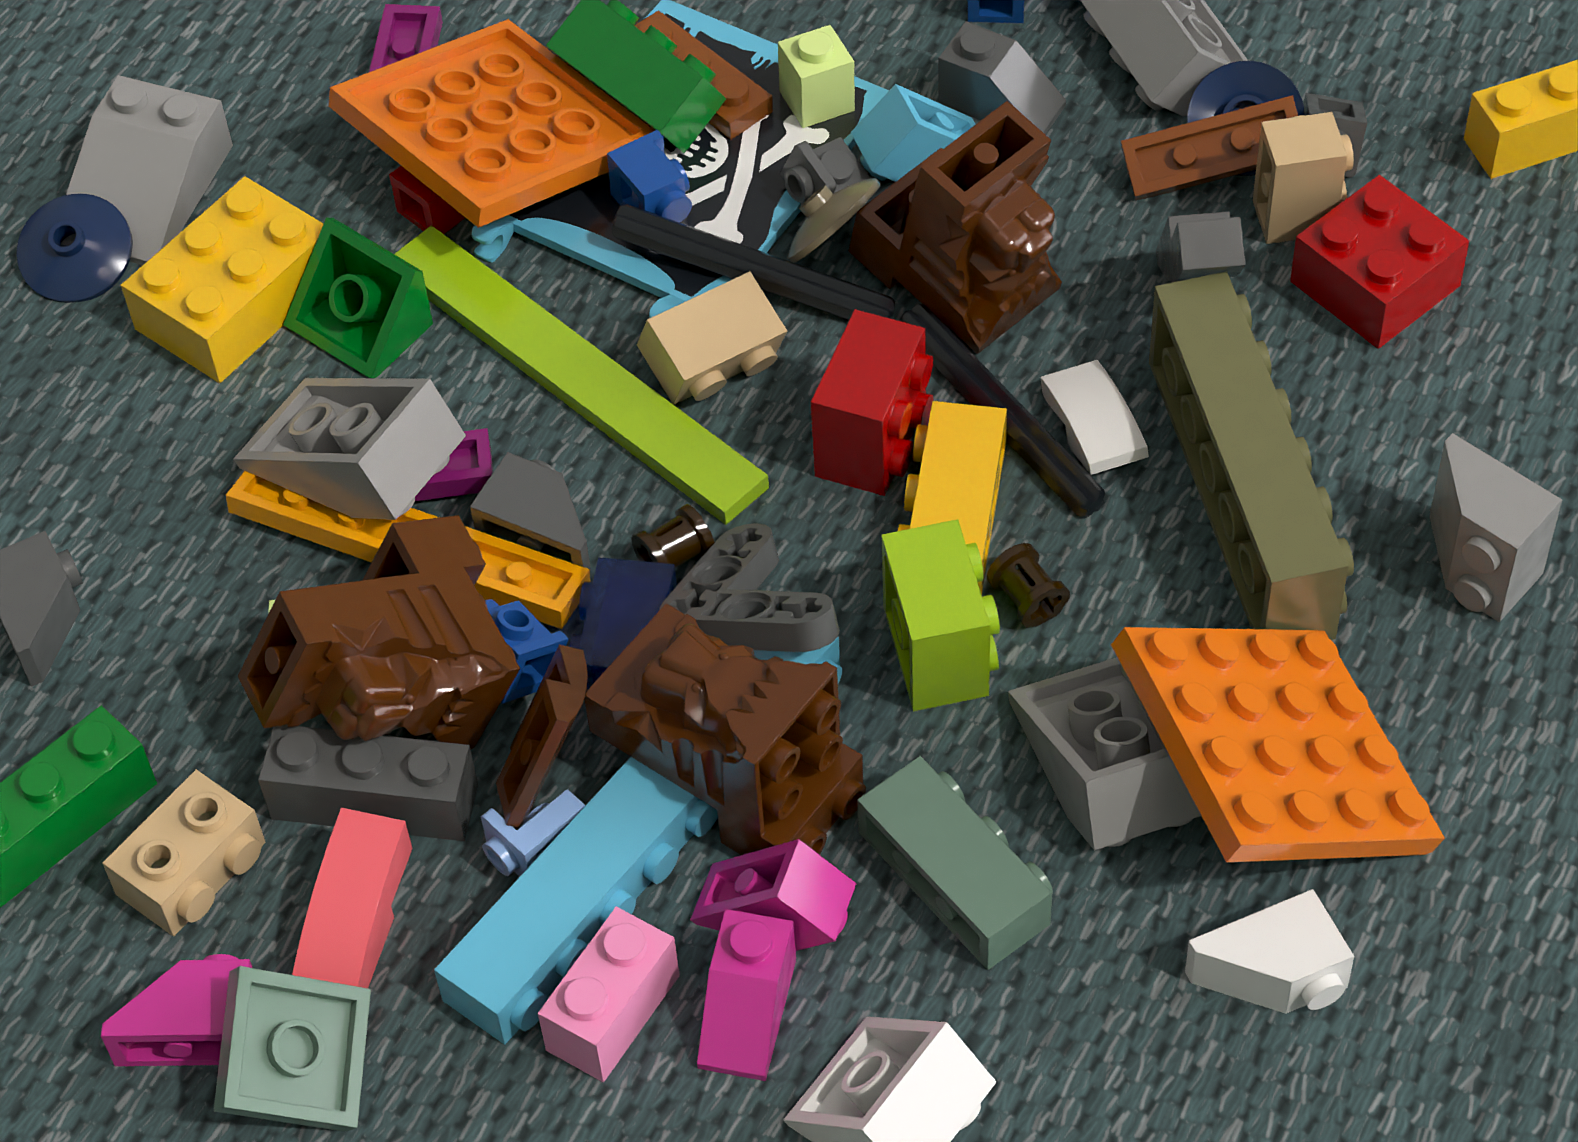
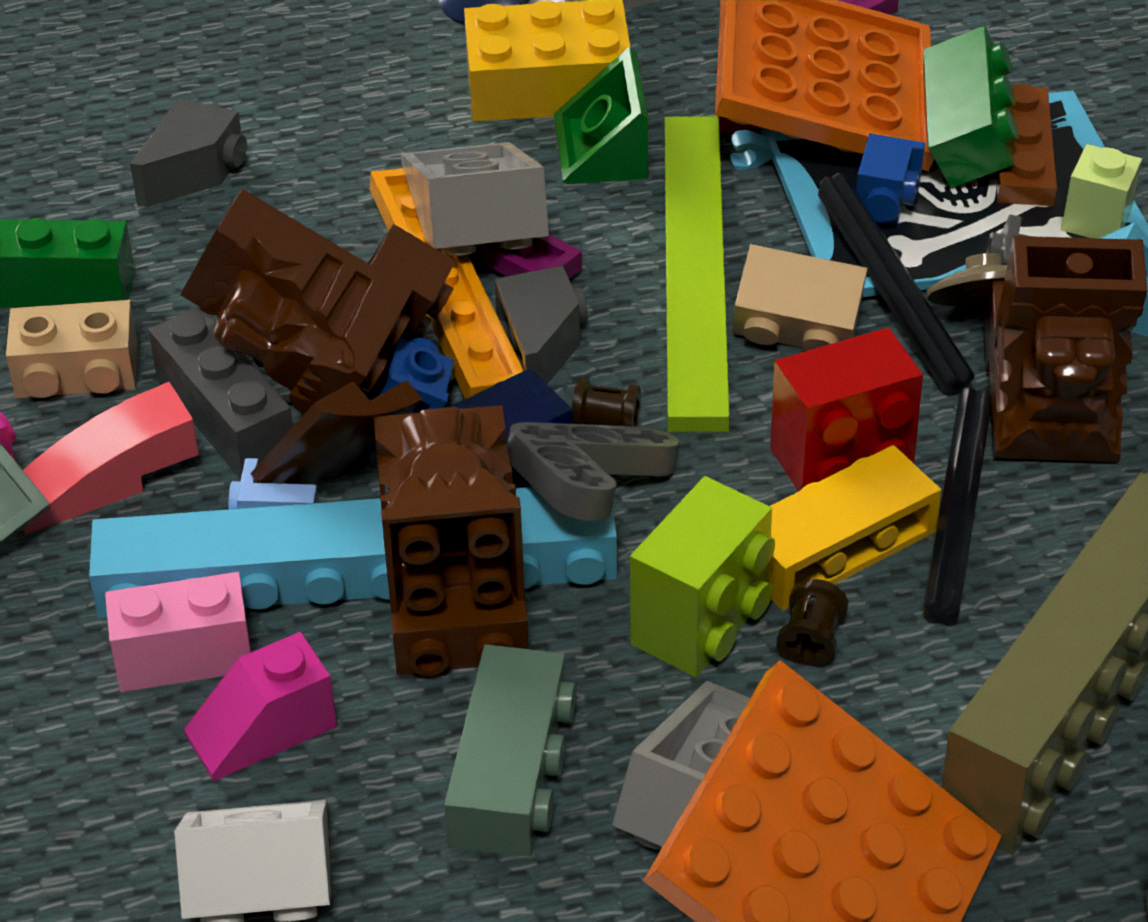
camera: 45 degrees right, 10 degrees down
(779, 883) = (367, 673): dark pink slope -> none
(1095, 417) = (1019, 557): white slope -> none

